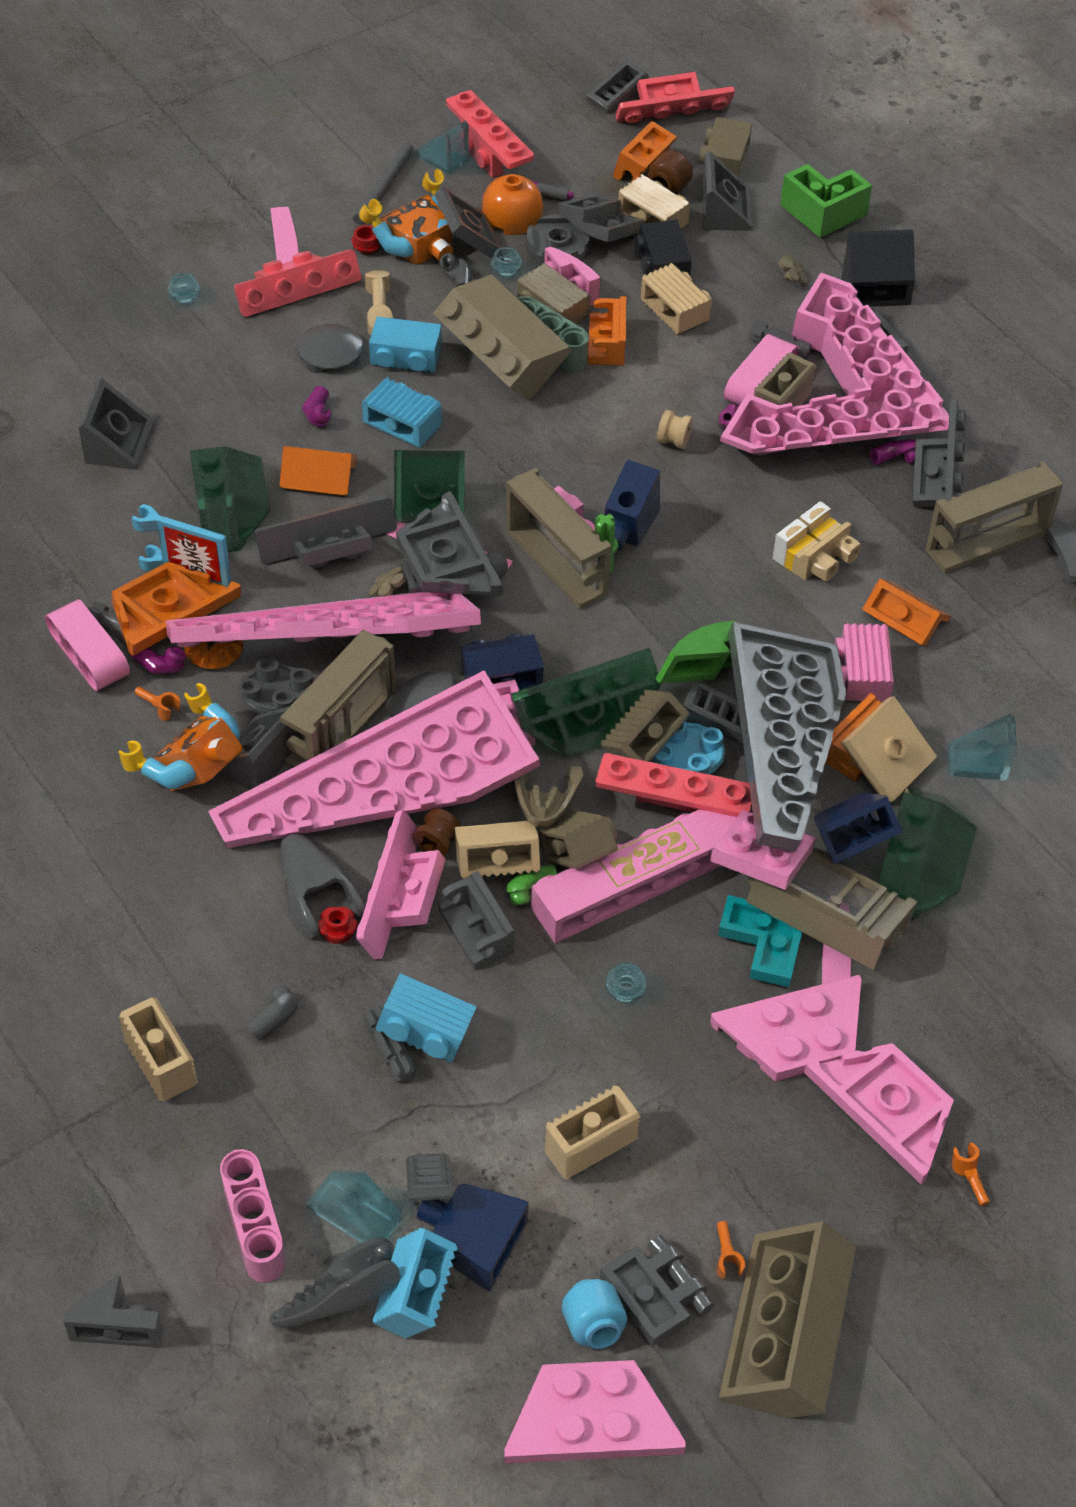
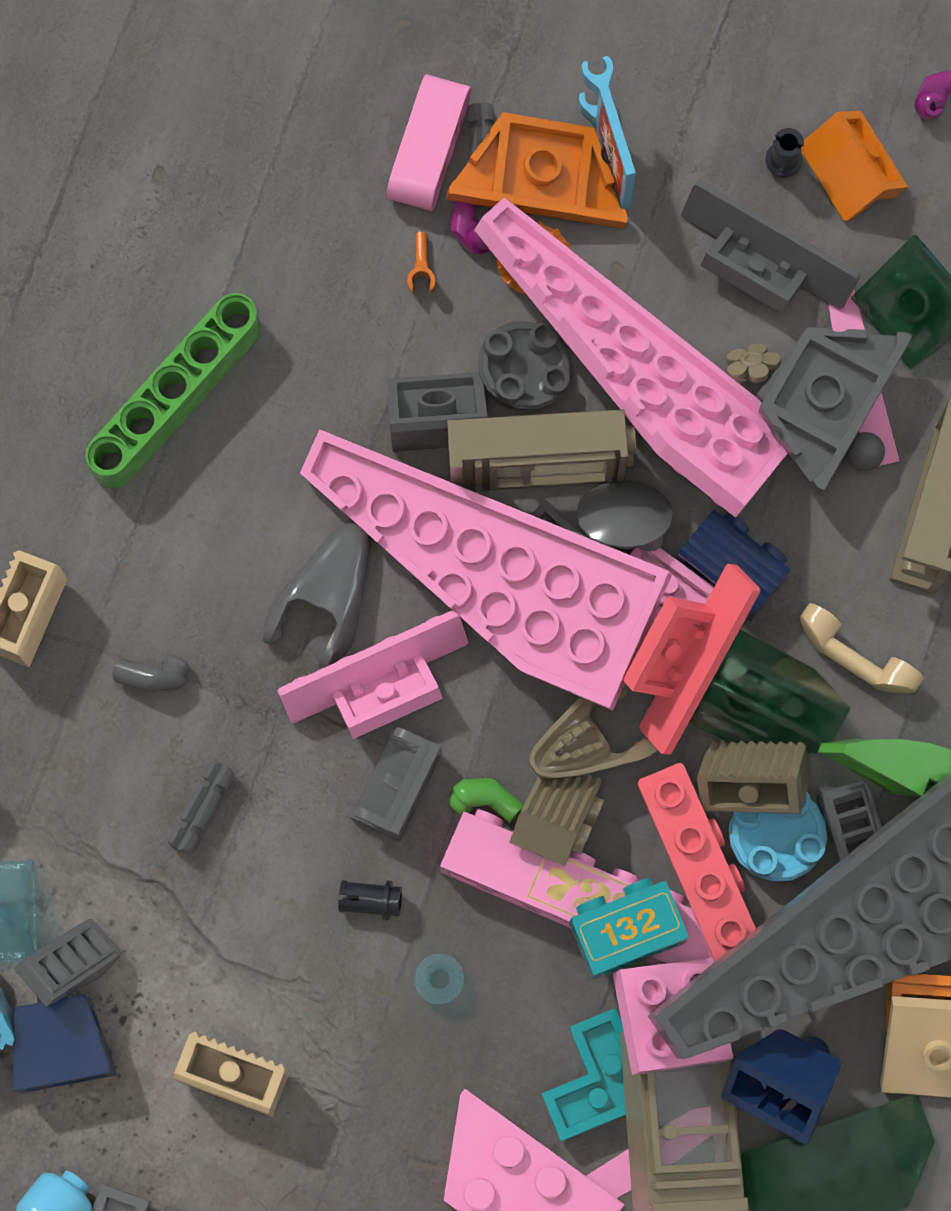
camera: 55 degrees right, 25 degrees up
(99, 856) = (176, 368): none -> bright green beam
(195, 753) = (375, 363): torso -> none
(230, 493) = (737, 103): clear green wedge -> none
(280, 492) = (785, 154): none -> black pin
(339, 932) = (298, 664): red plate -> none
(425, 1018) = (239, 825): medium azure brick -> none
(436, 832) = (469, 665): reddish brown wheel -> none
(497, 848) = (486, 740): tan brick -> none
(545, 697) = (685, 653): none -> coral bracket
(548, 977) = (374, 899): none -> black pin
(579, 653) = (896, 676): none -> tan bar
(687, 838) = (627, 928): none -> teal brick

